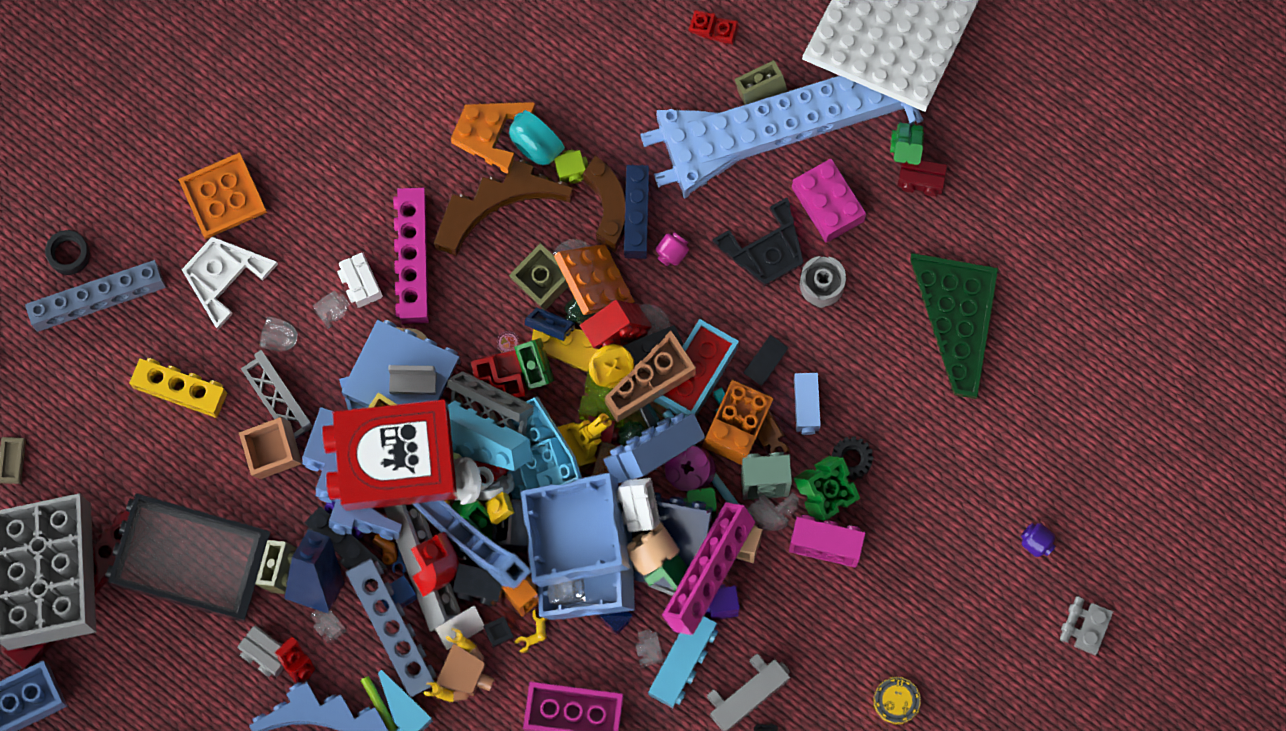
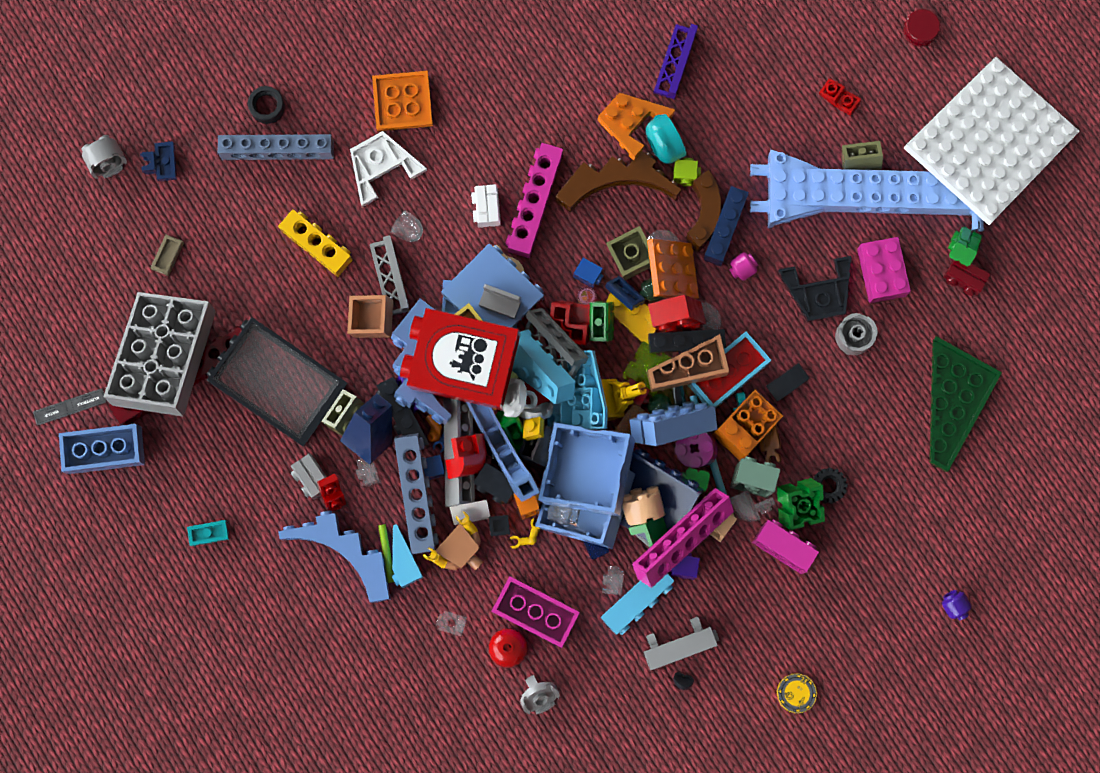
camera: 20 degrees right, 5 degrees up
(331, 308) = (457, 220): clear brick -> none
(501, 316) = (588, 273): none -> blue brick
(524, 54) = (682, 60): none -> dark purple fence
(610, 365) = (661, 345): yellow tile -> none
(638, 504) = (644, 467): white brick -> none
(807, 403) = (808, 428): light blue brick -> none
(1092, 629) = (975, 691): light grey plate -> none

